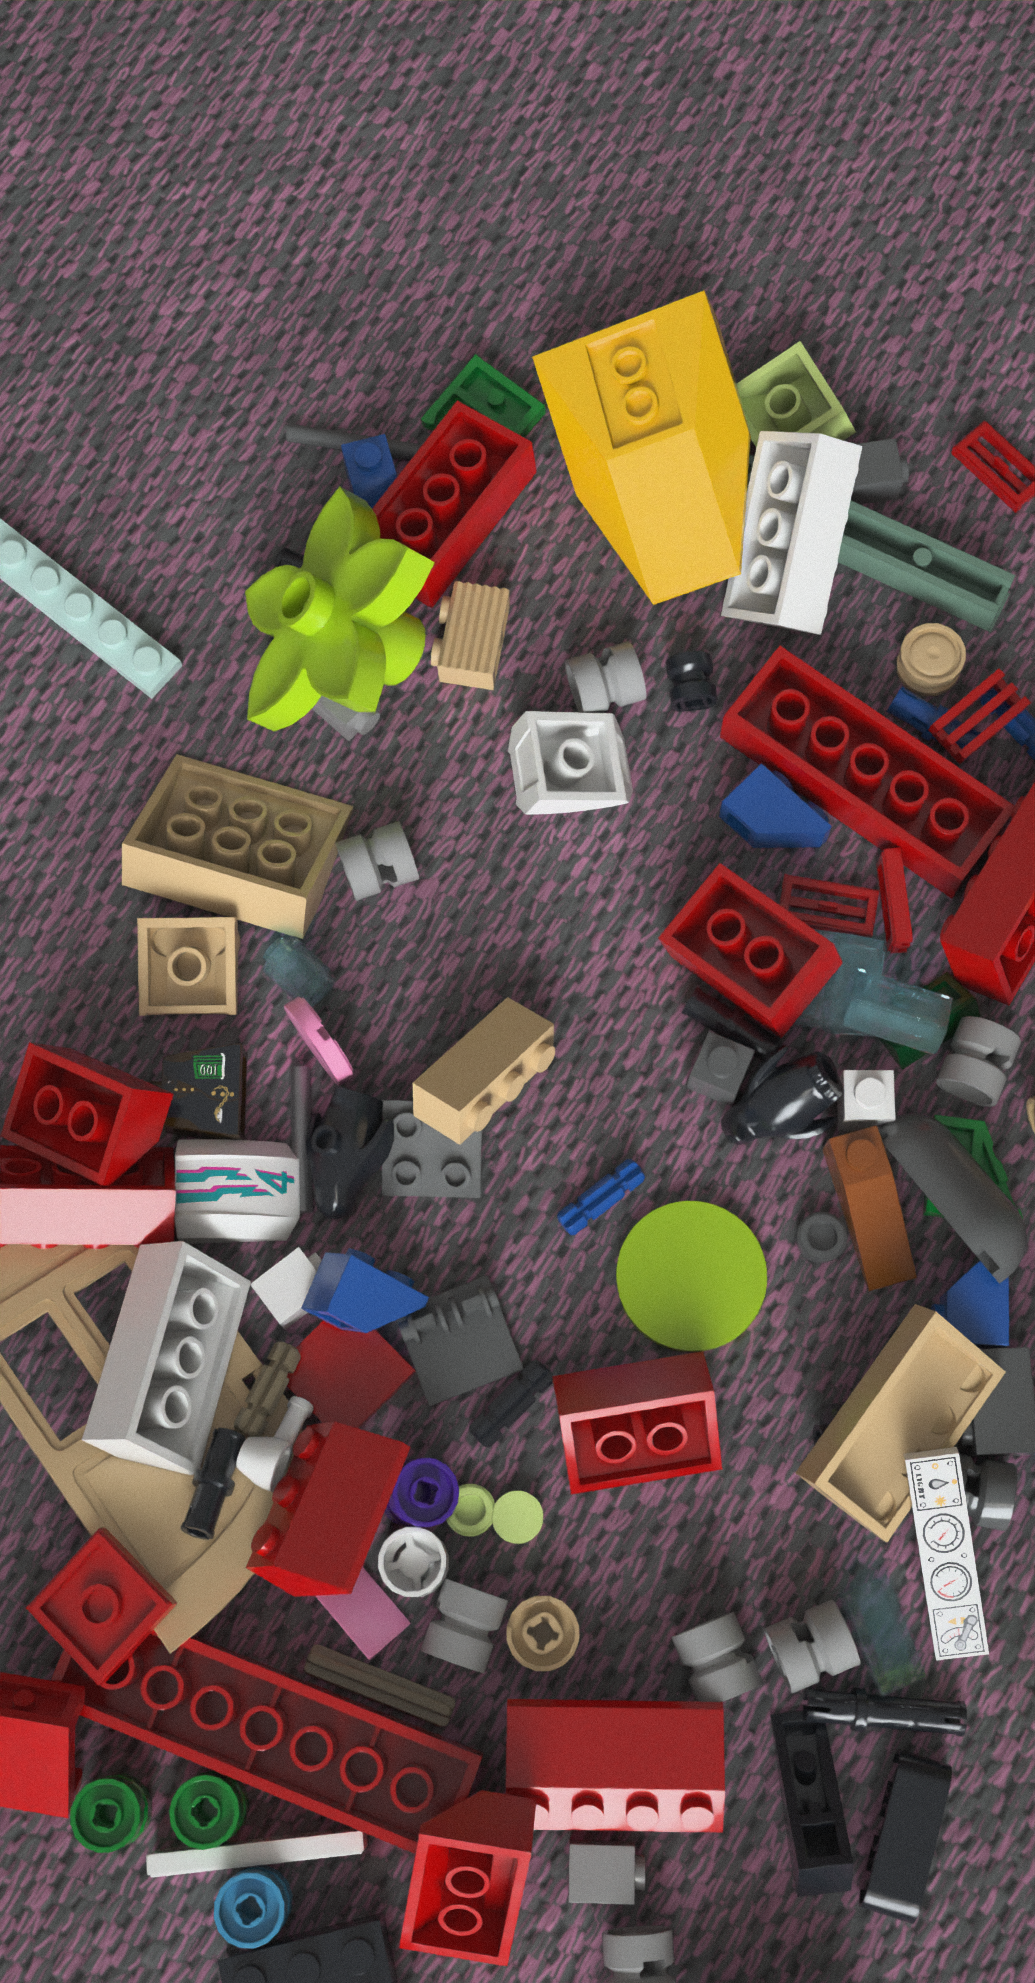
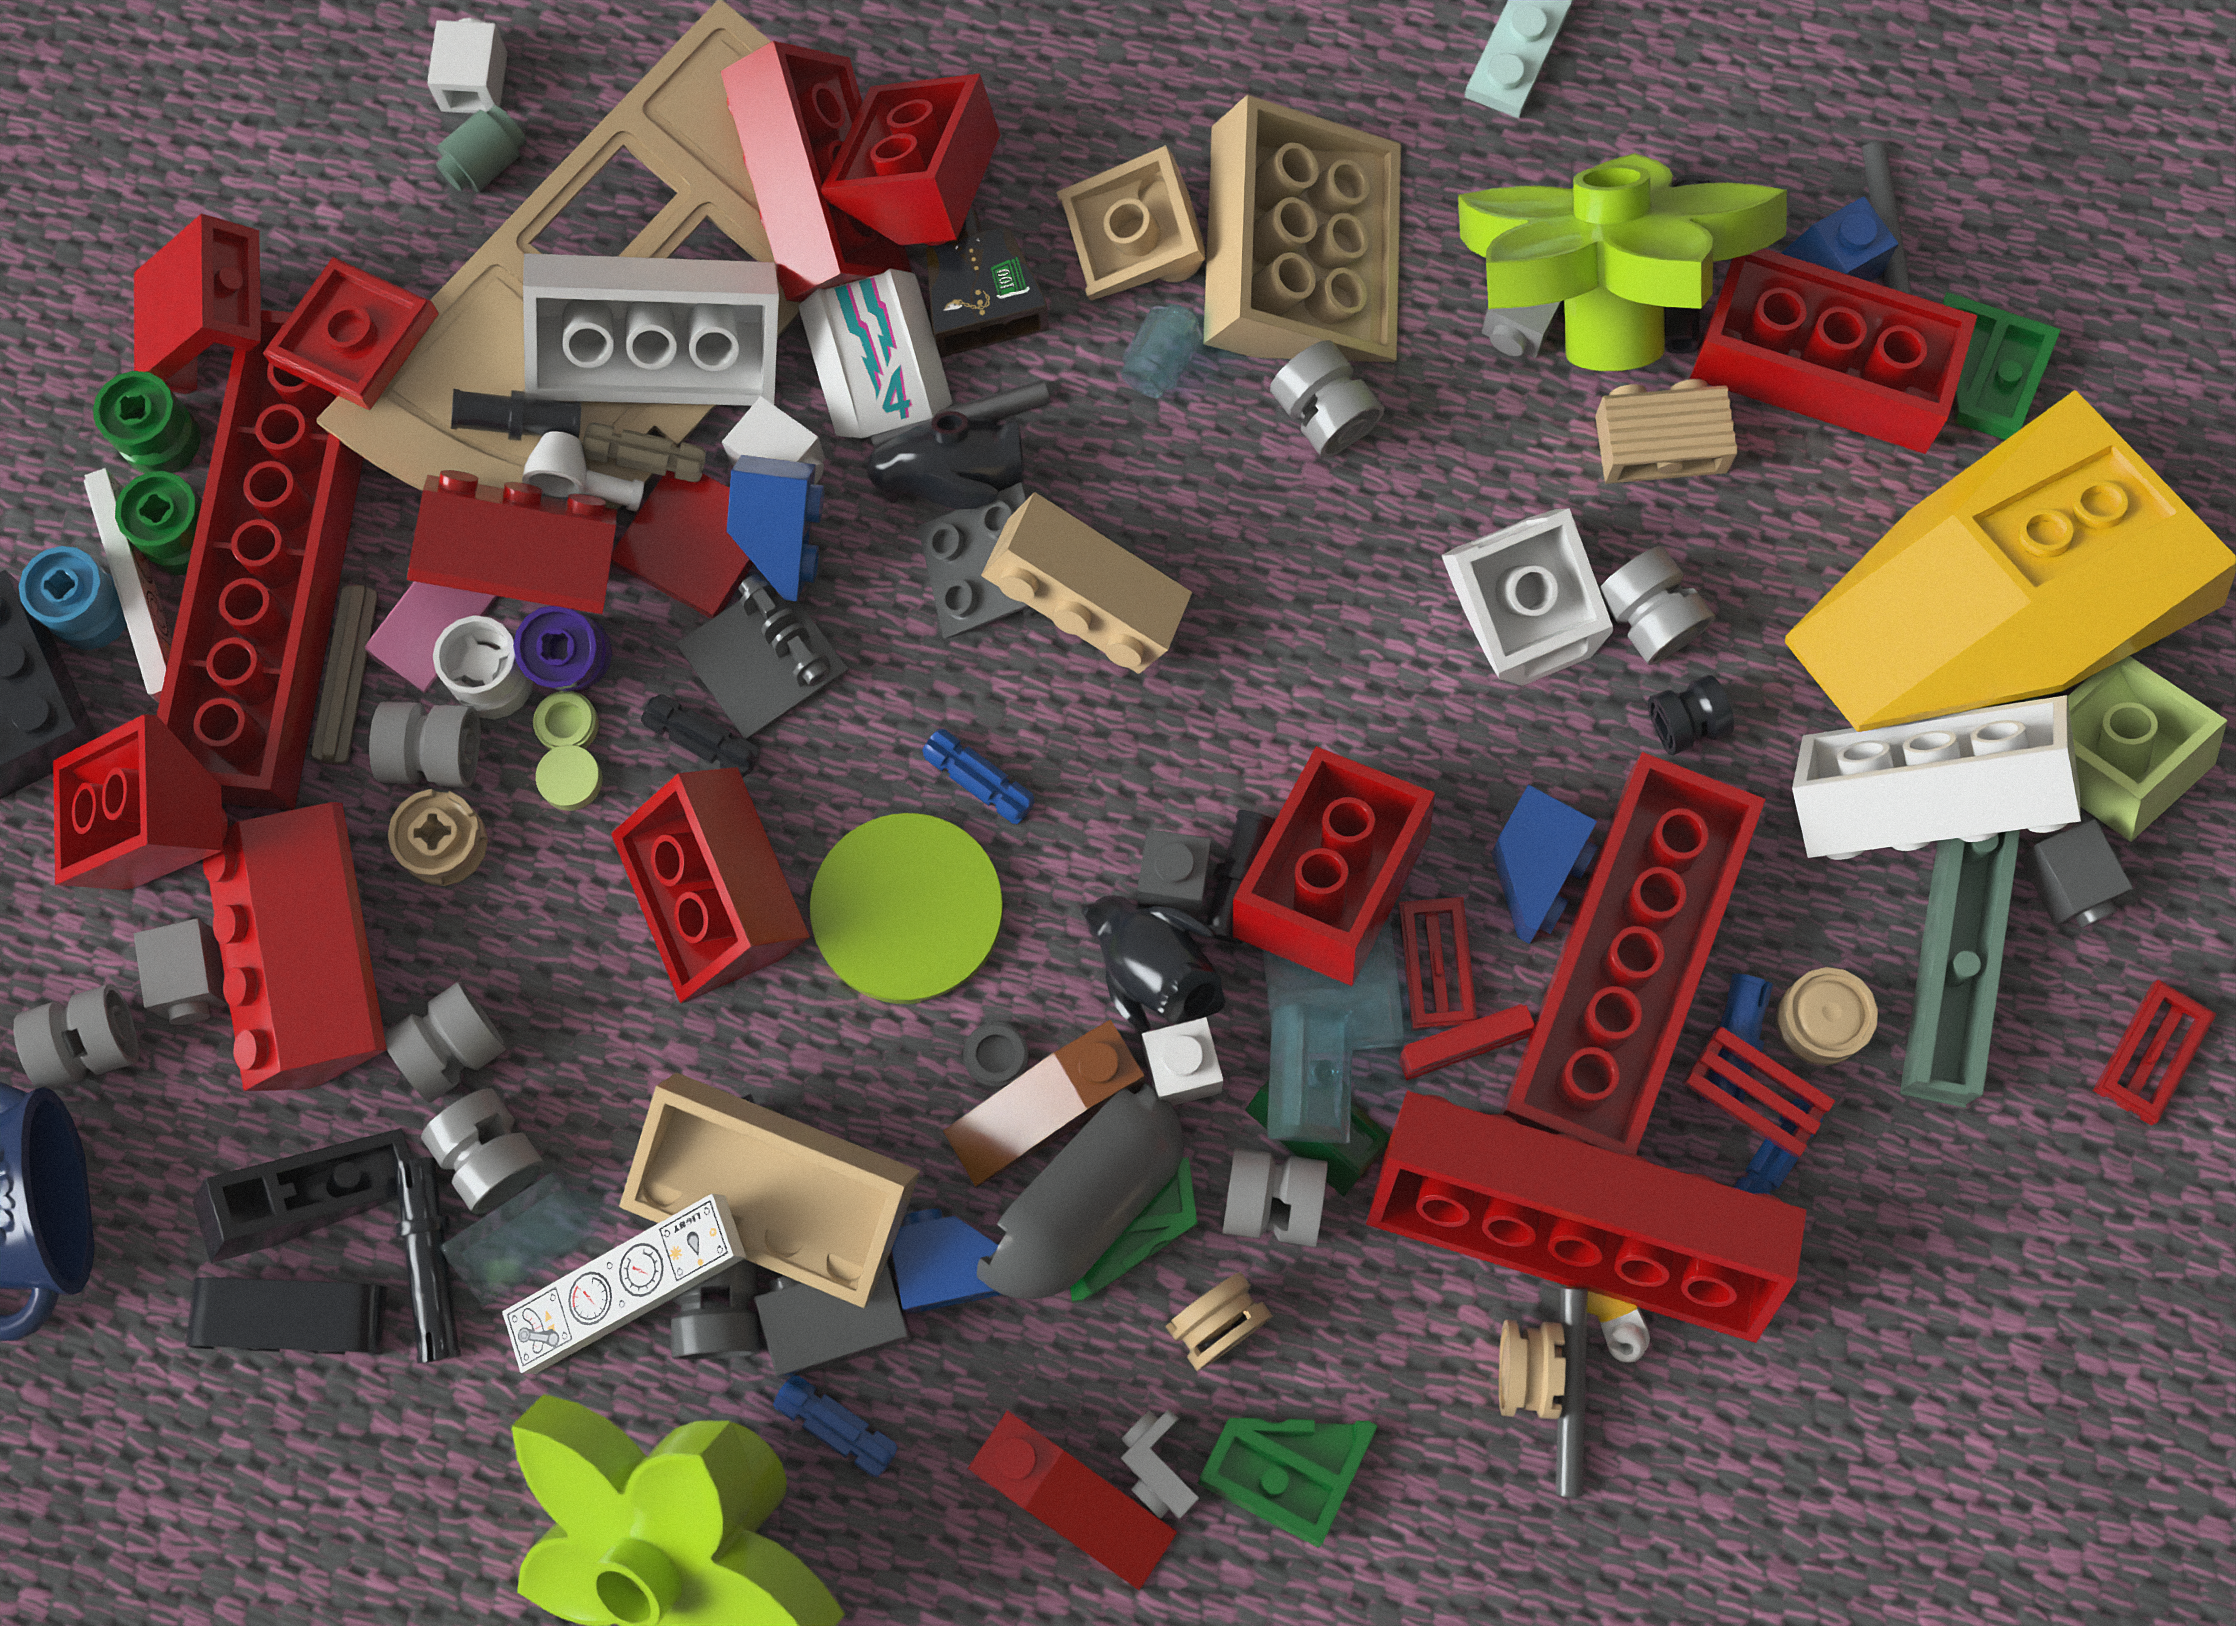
camera: 75 degrees right, 0 degrees up
(318, 1040) = (1076, 380): bright pink tile -> none

